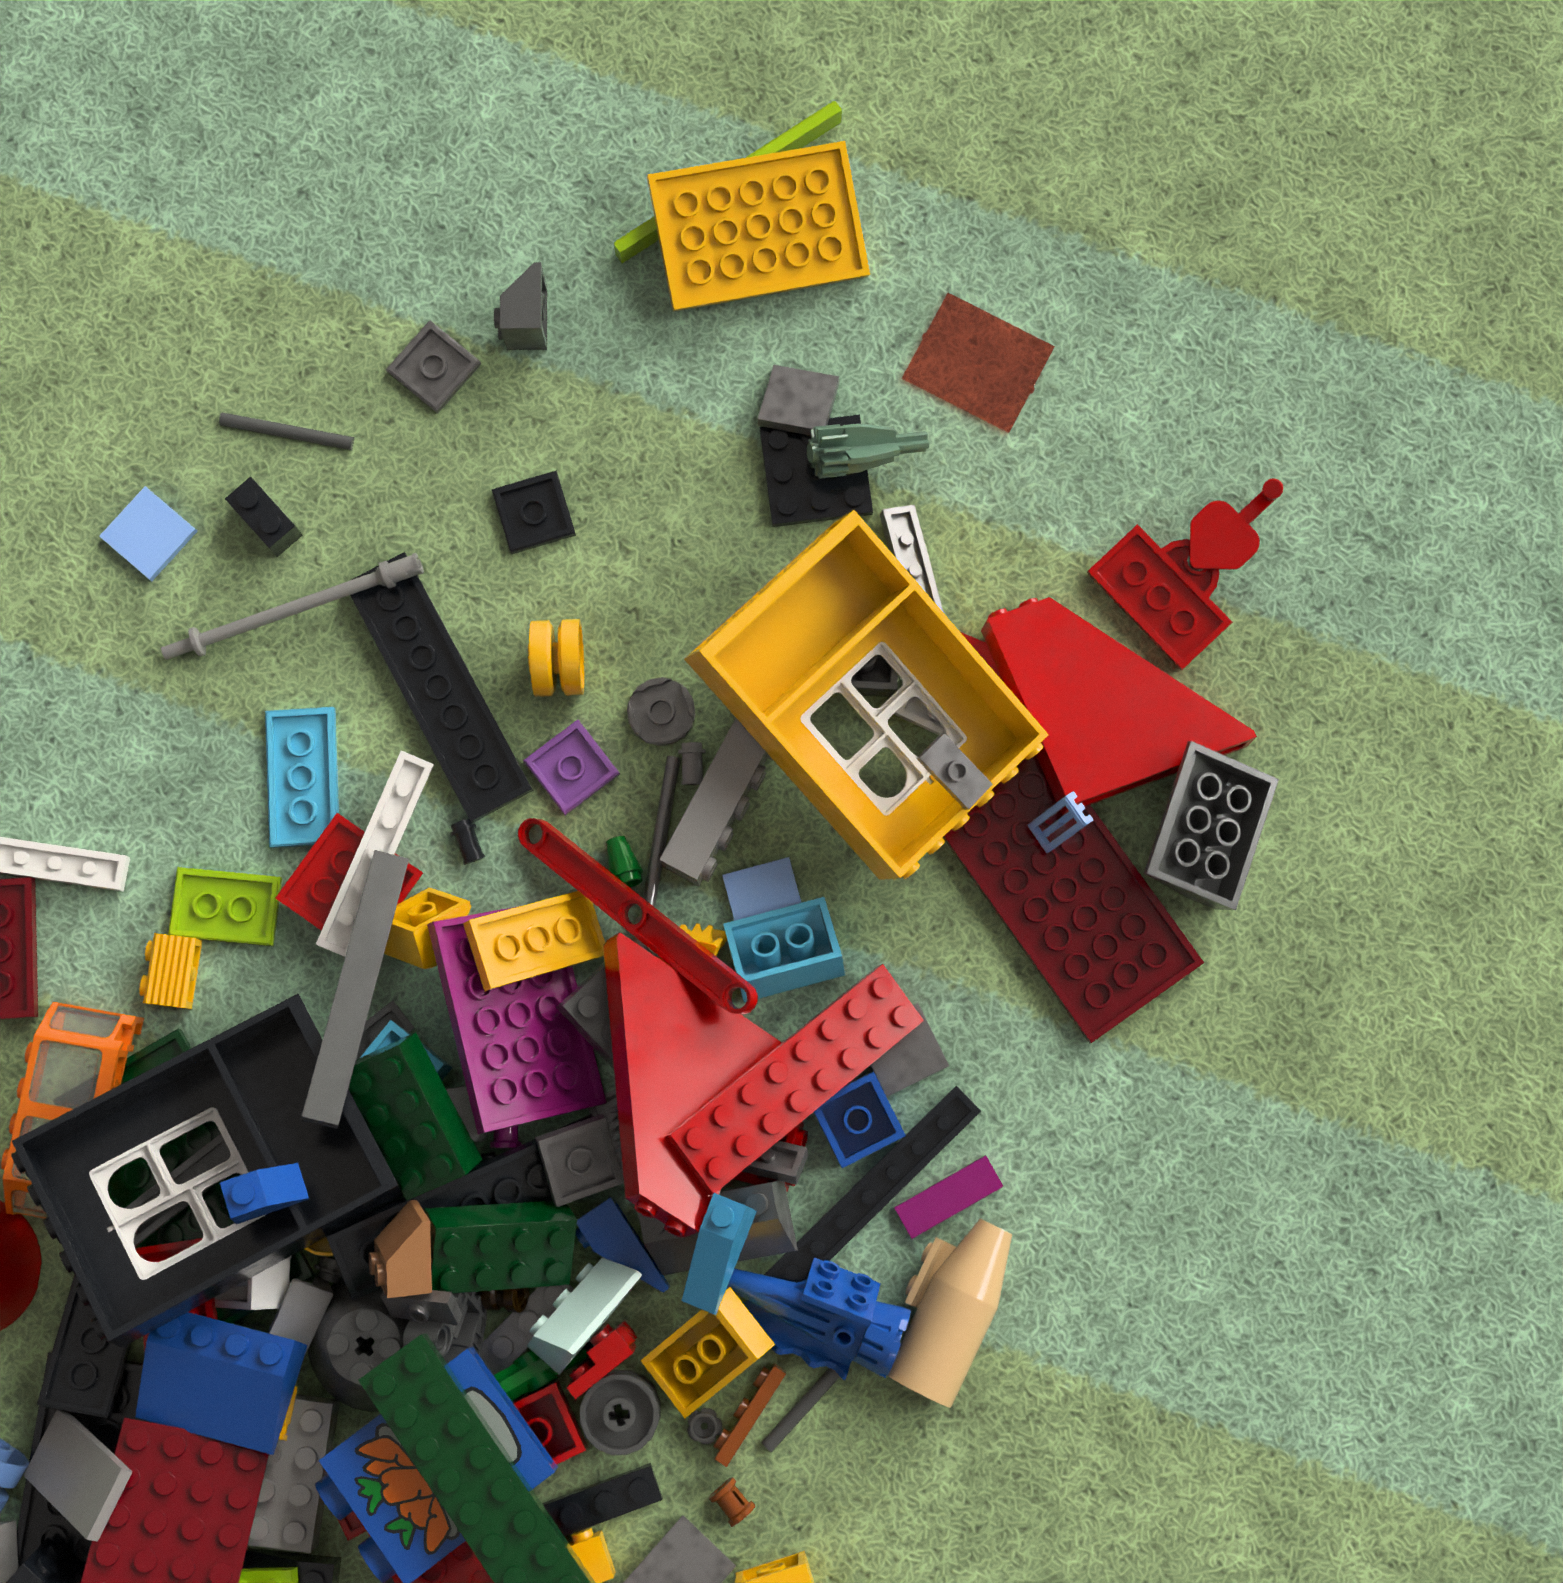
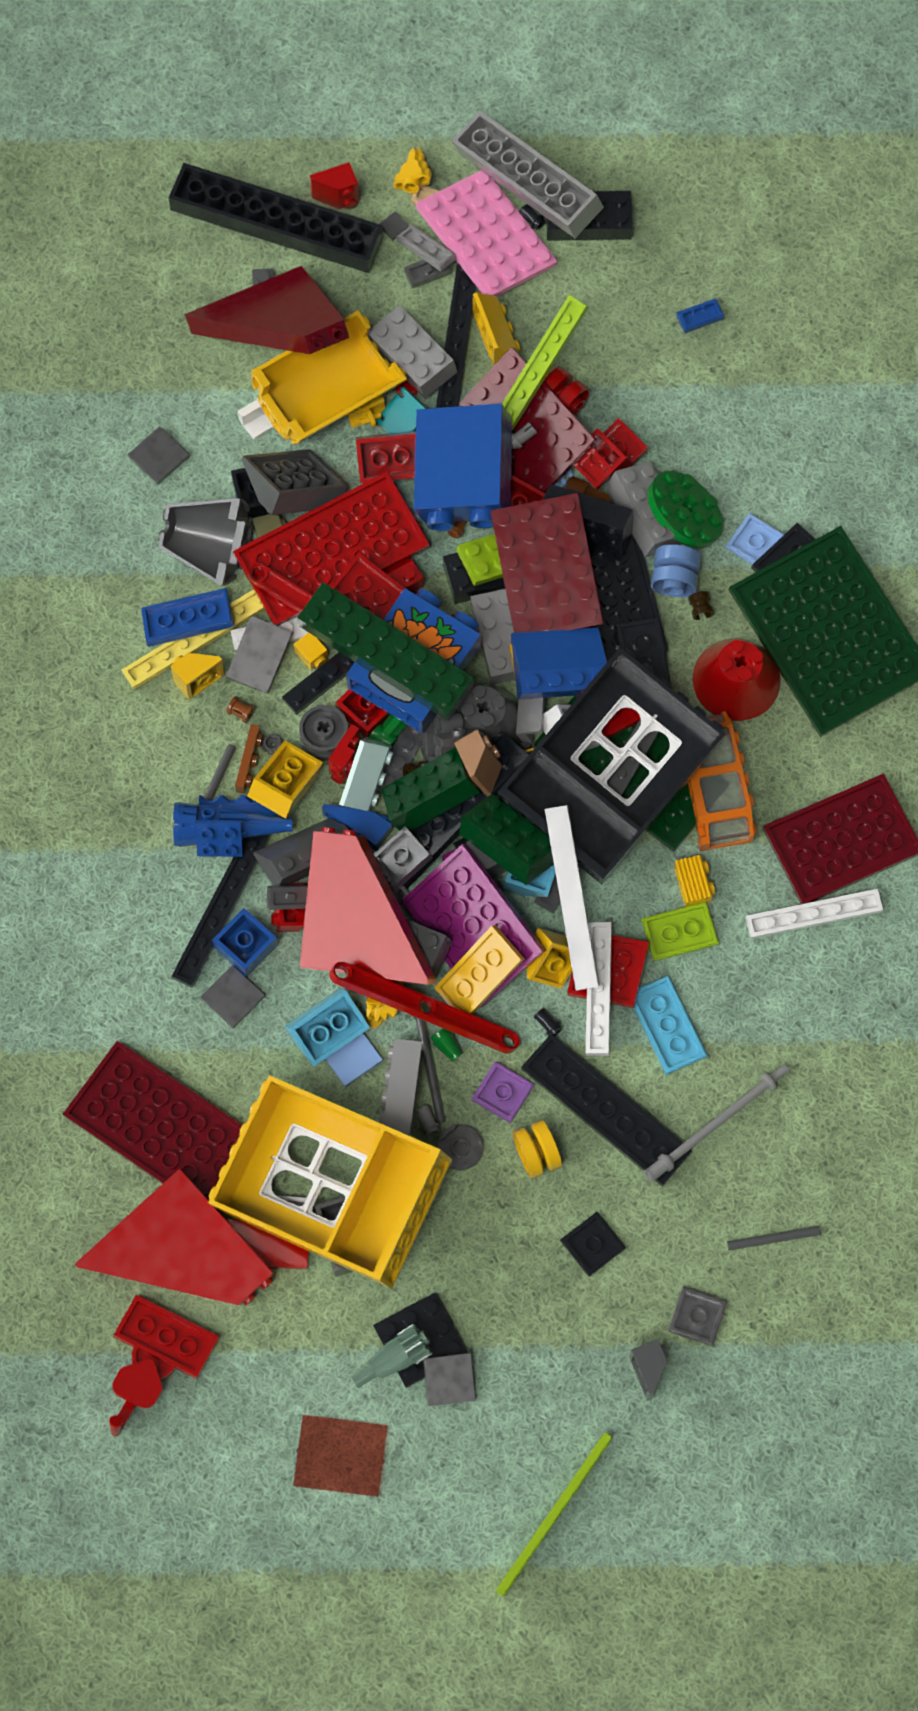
camera: 160 degrees right, 10 degrees down
(77, 1474) = (616, 586): light grey tile -> none
(148, 533) = (831, 1139): light blue tile -> none
(263, 516) = (761, 1173): black brick -> none
(263, 1192) = (569, 756): blue slope -> none
(717, 1252) = (299, 828): dark azure slope -> none
(758, 225) = (520, 1485): yellow plate -> none
(794, 1079) = (289, 946): plate -> none
(908, 546) = (332, 1294): plate -> none
(948, 1197) = (173, 922): magenta tile -> none
(954, 771) = (258, 1151): flat silver plate -> none
(955, 1306) = (147, 858): tan piece -> none
(1075, 812) = (180, 1162): light blue tile -> none
(1210, 827) = (85, 1192): dark grey slope -> none

